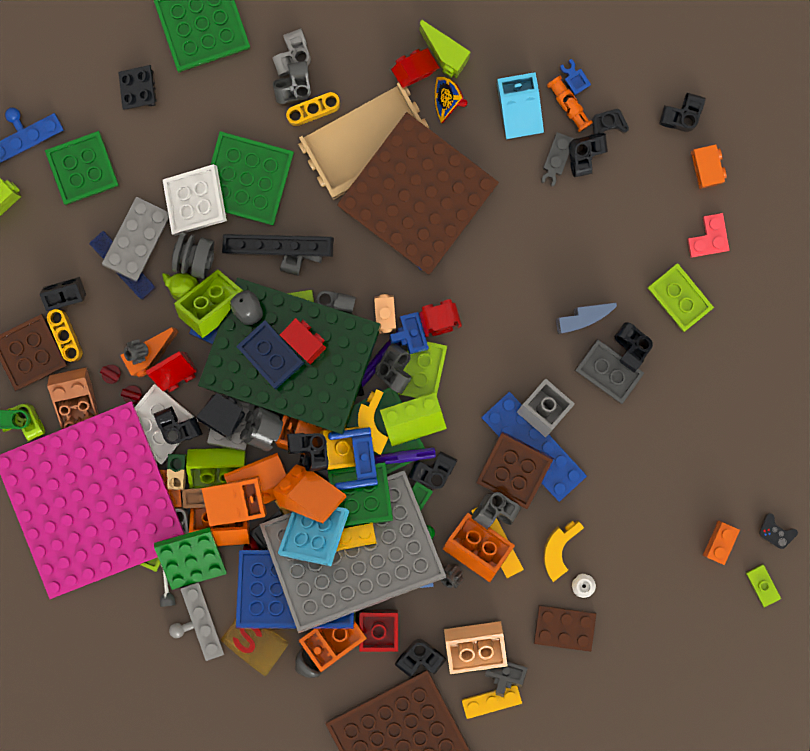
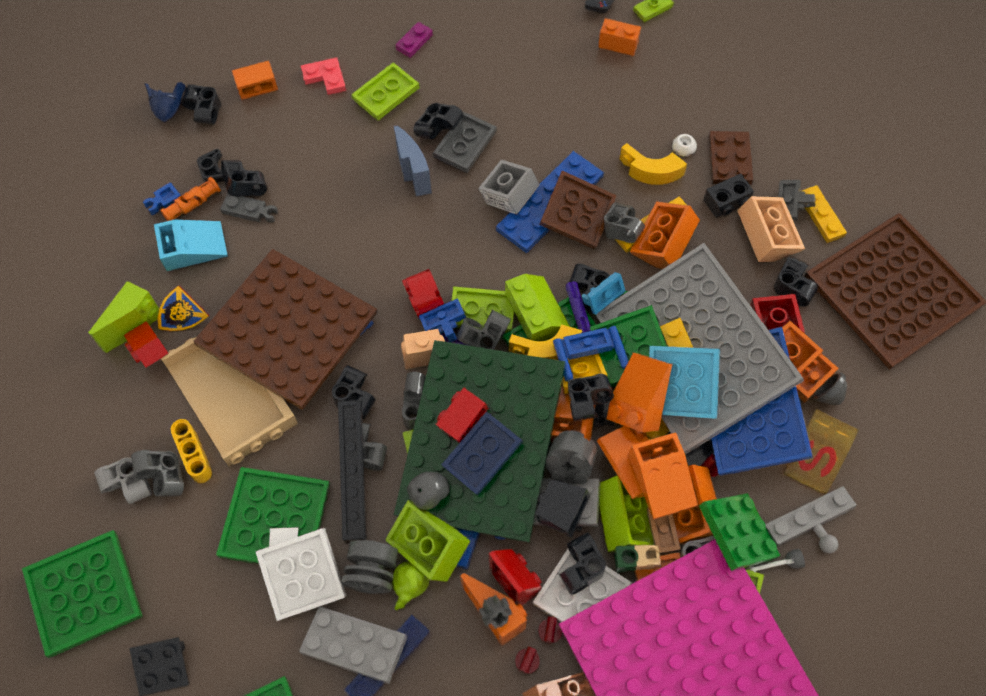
camera: 95 degrees left, 25 degrees down
(228, 186) = (280, 535): none -> white sticker
(363, 248) = (350, 383): none -> black piece
(415, 479) = (605, 293): none -> dark azure plate
(521, 614) = (727, 193): none -> black brick
(689, 76) = (165, 104): none -> dark blue helmet
(746, 331) = (414, 39): none -> magenta plate

